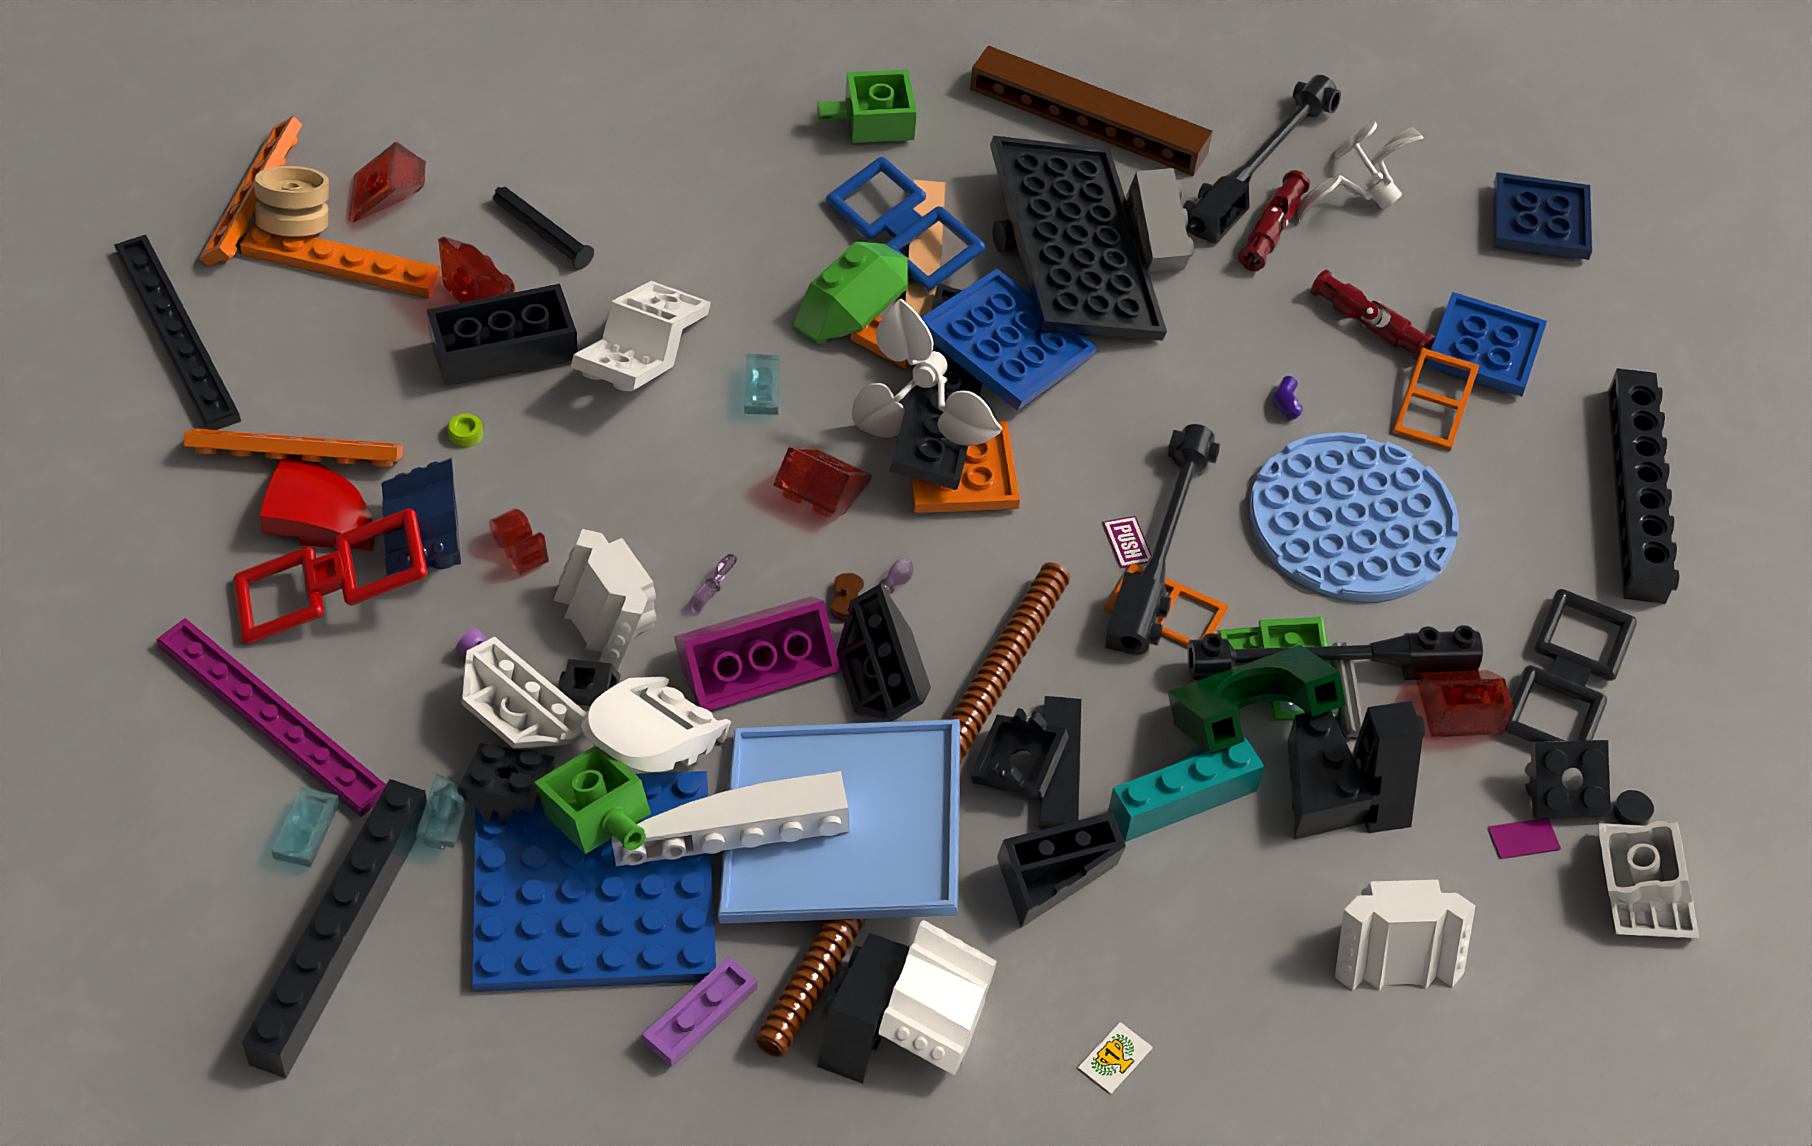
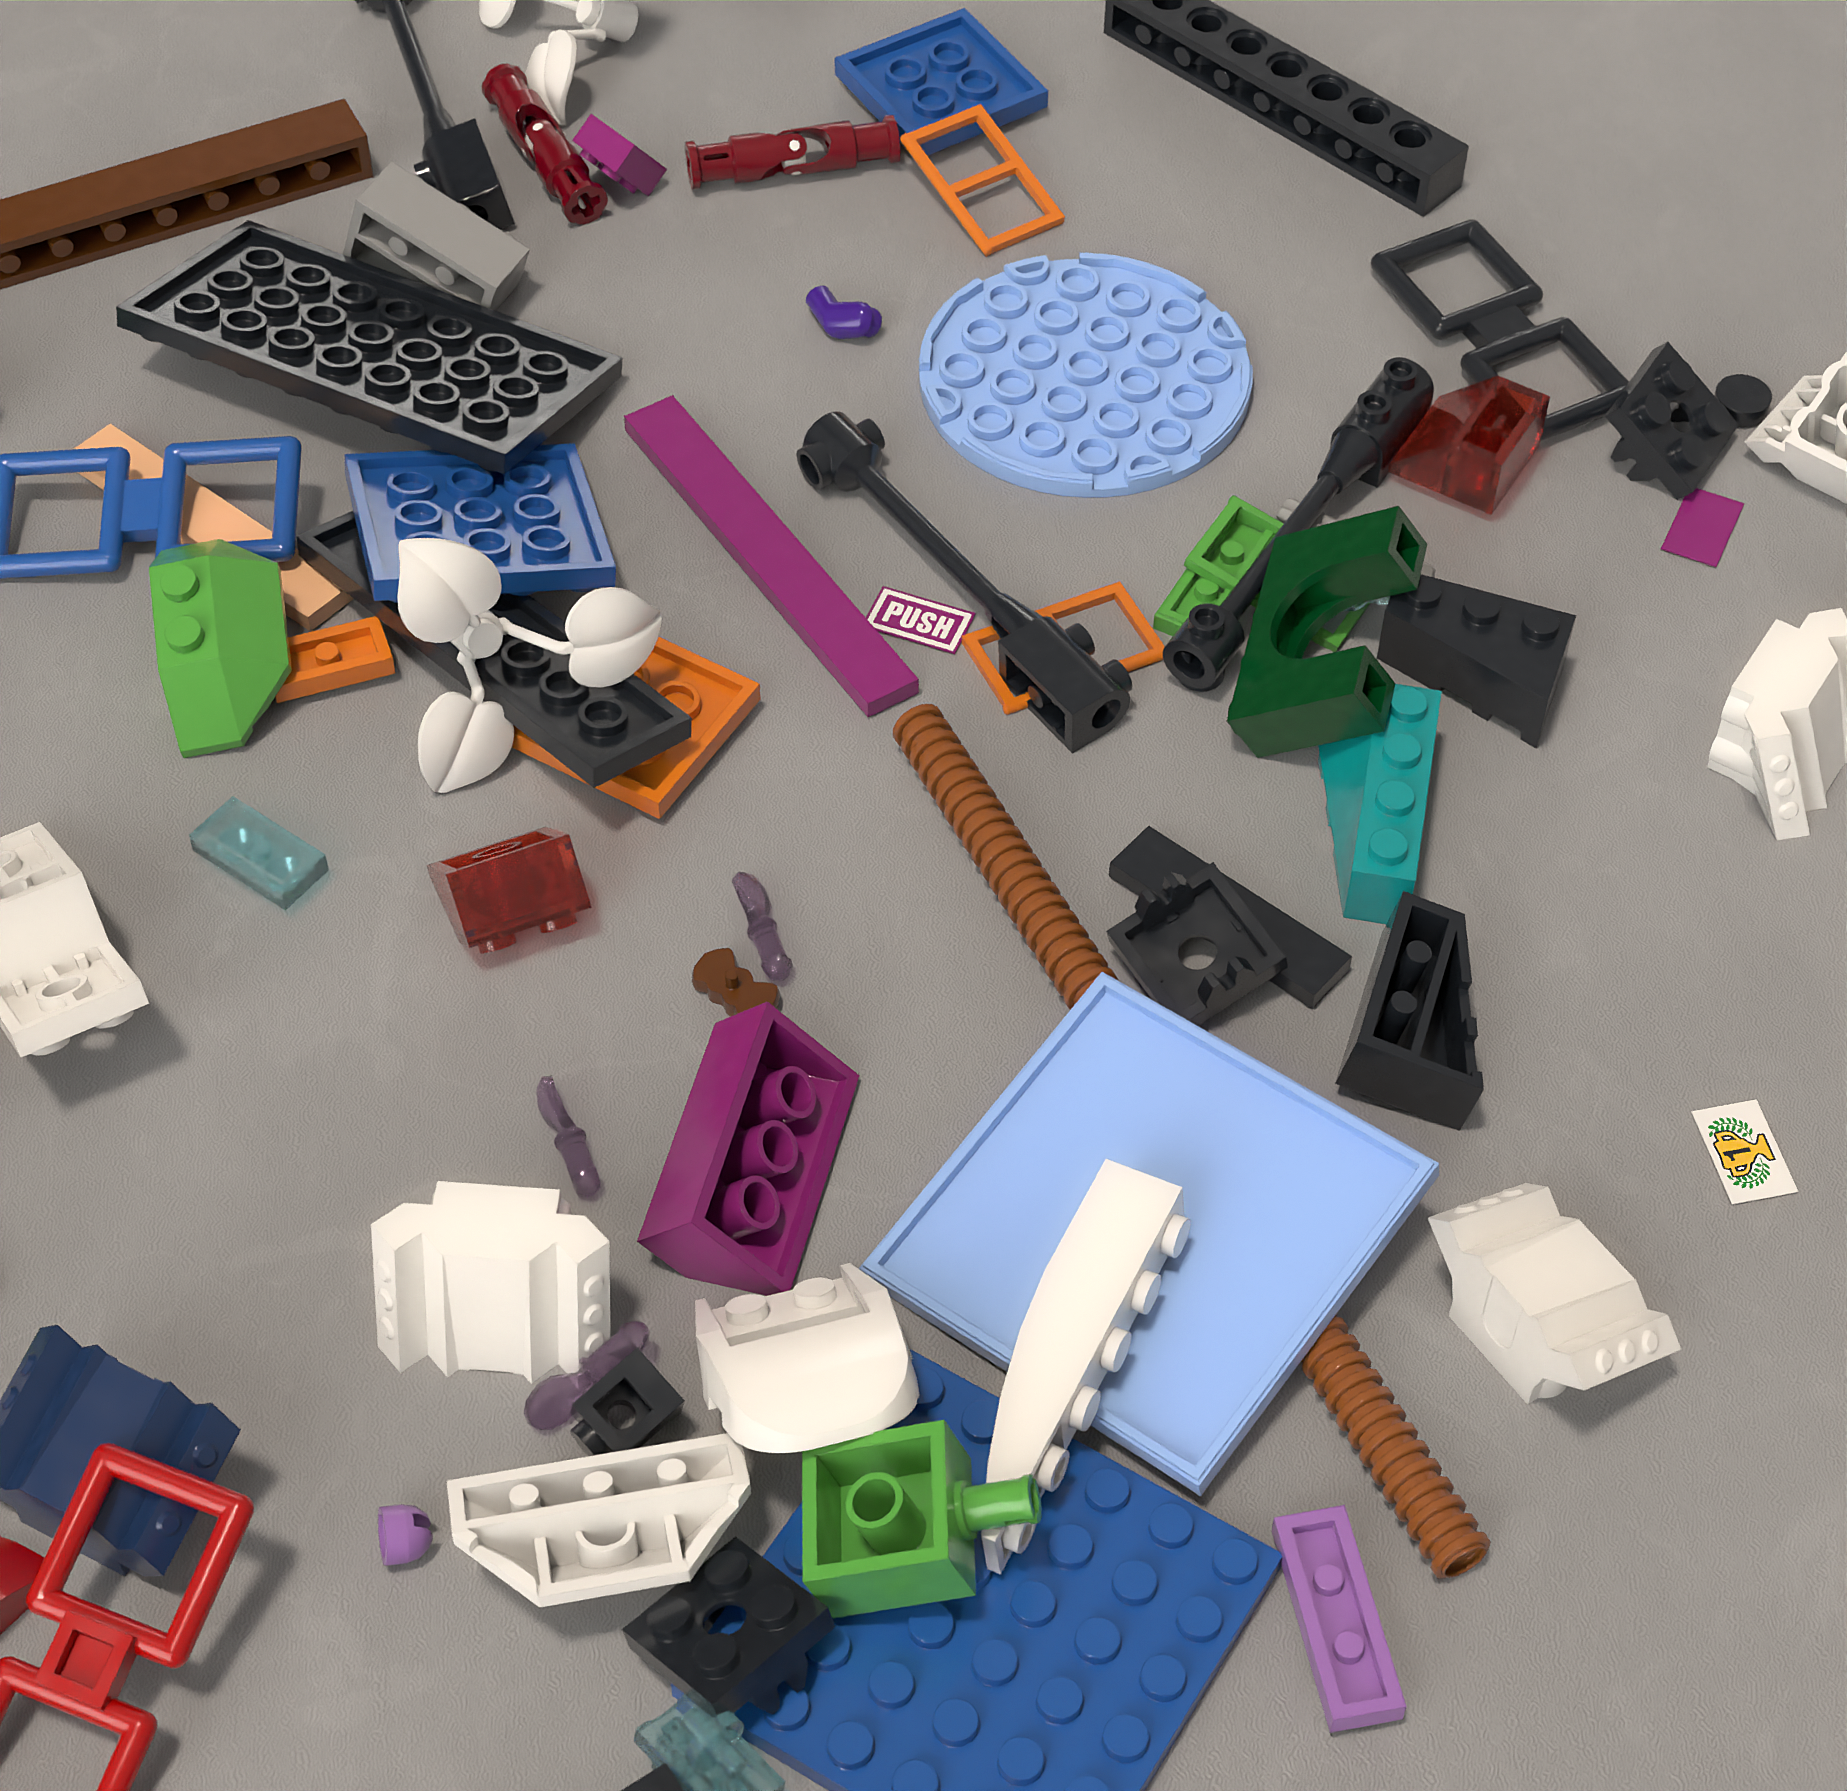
camera: 50 degrees left, 0 degrees up
(516, 537) = (237, 1344): clear red leg -> none
(622, 664) = (553, 1397): none -> clear purple piece
(859, 1006) = (1488, 1390): black wedge -> none
(881, 658) = (905, 1011): black wedge -> none
(1003, 236) = (277, 415): black tile -> none
(1107, 461) = (772, 557): none -> magenta tile
(1292, 251) = (618, 156): none -> magenta piece
(1389, 762) = (1545, 553): black wedge -> none

